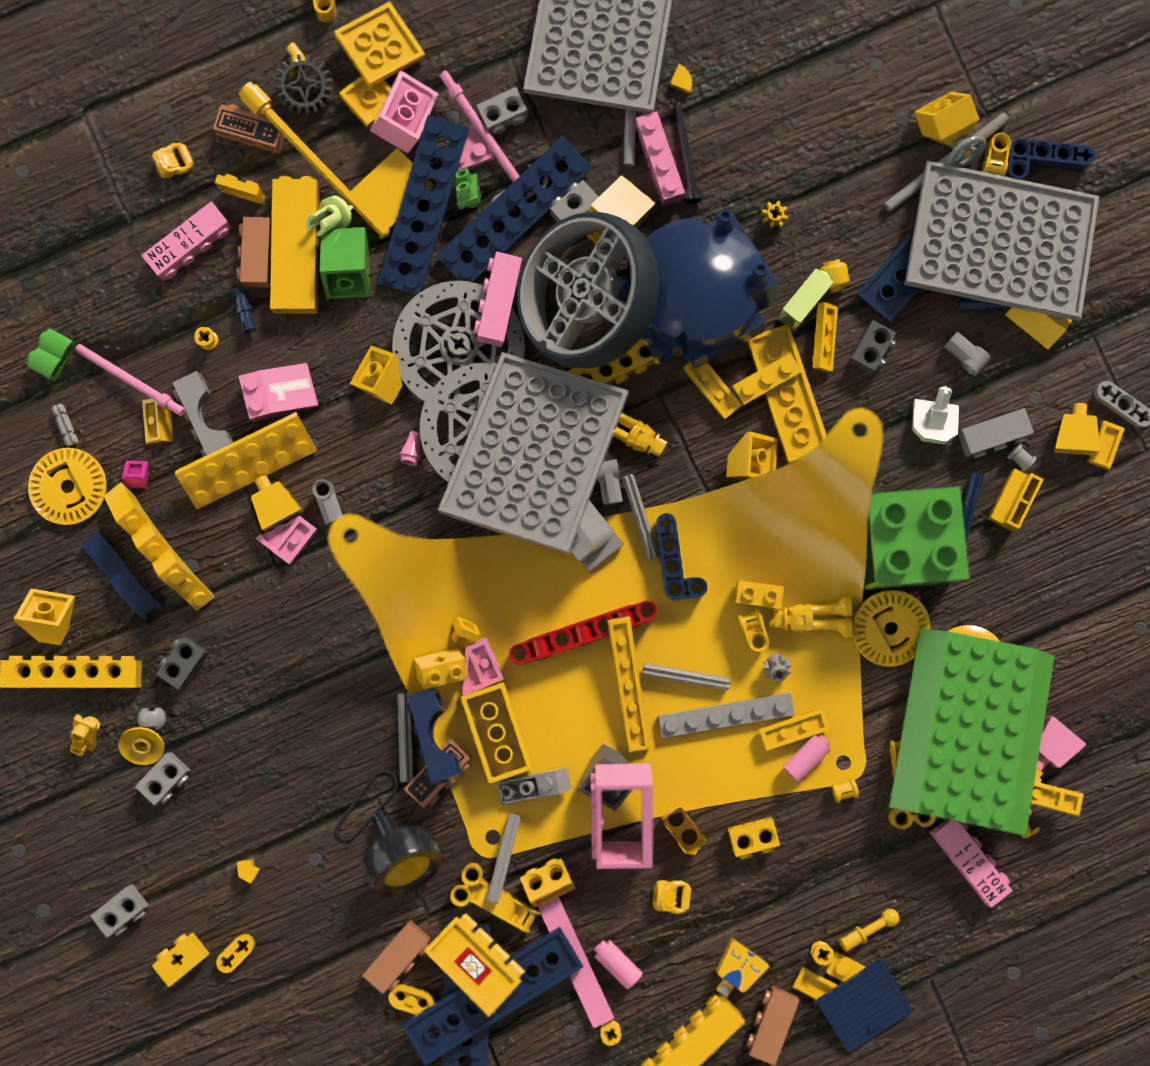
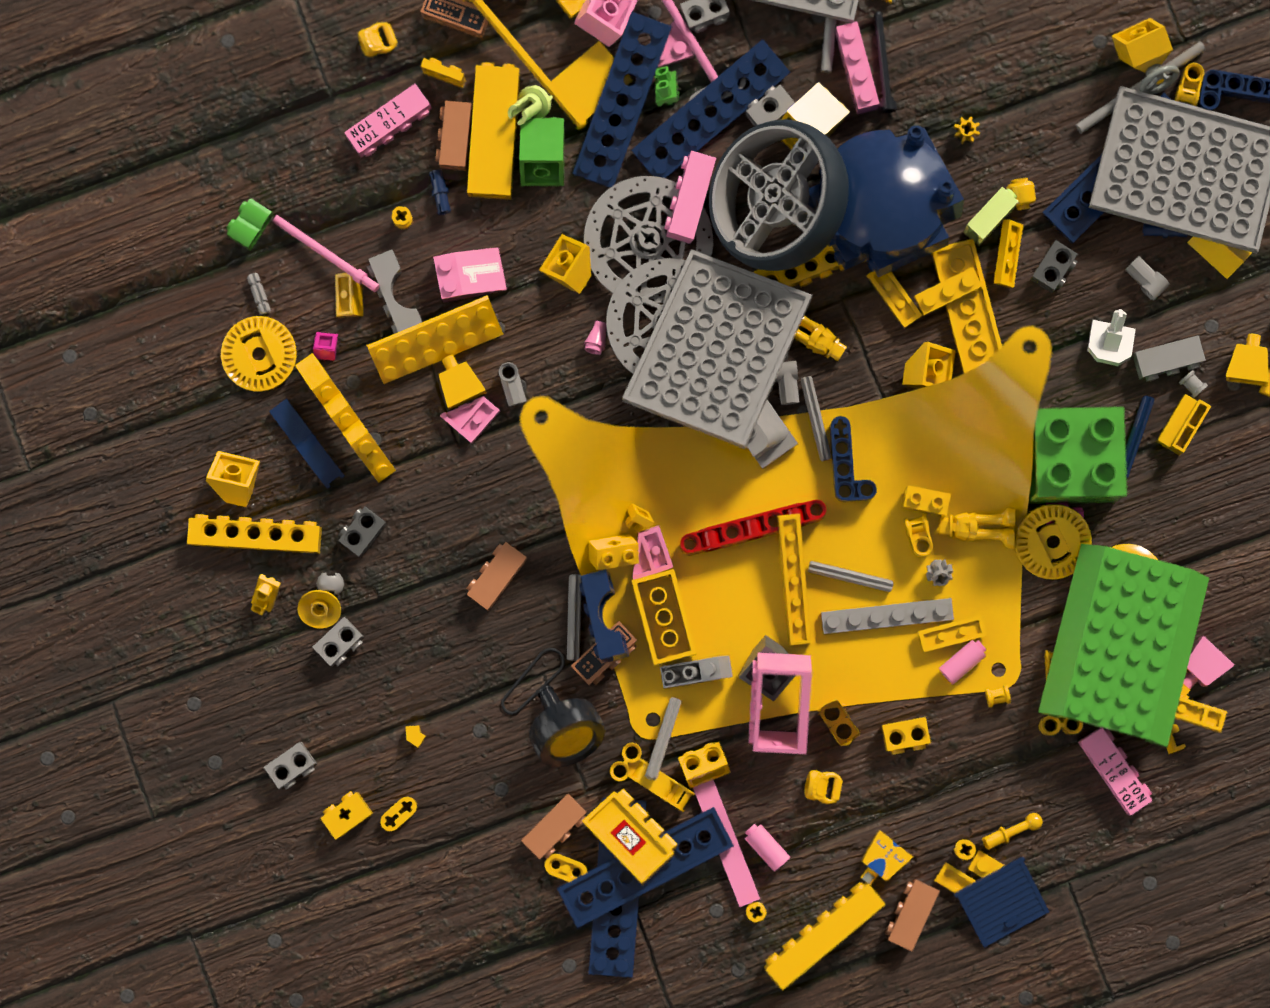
camera: 10 degrees right, 0 degrees up
(322, 699) = (496, 575): none -> nougat brick

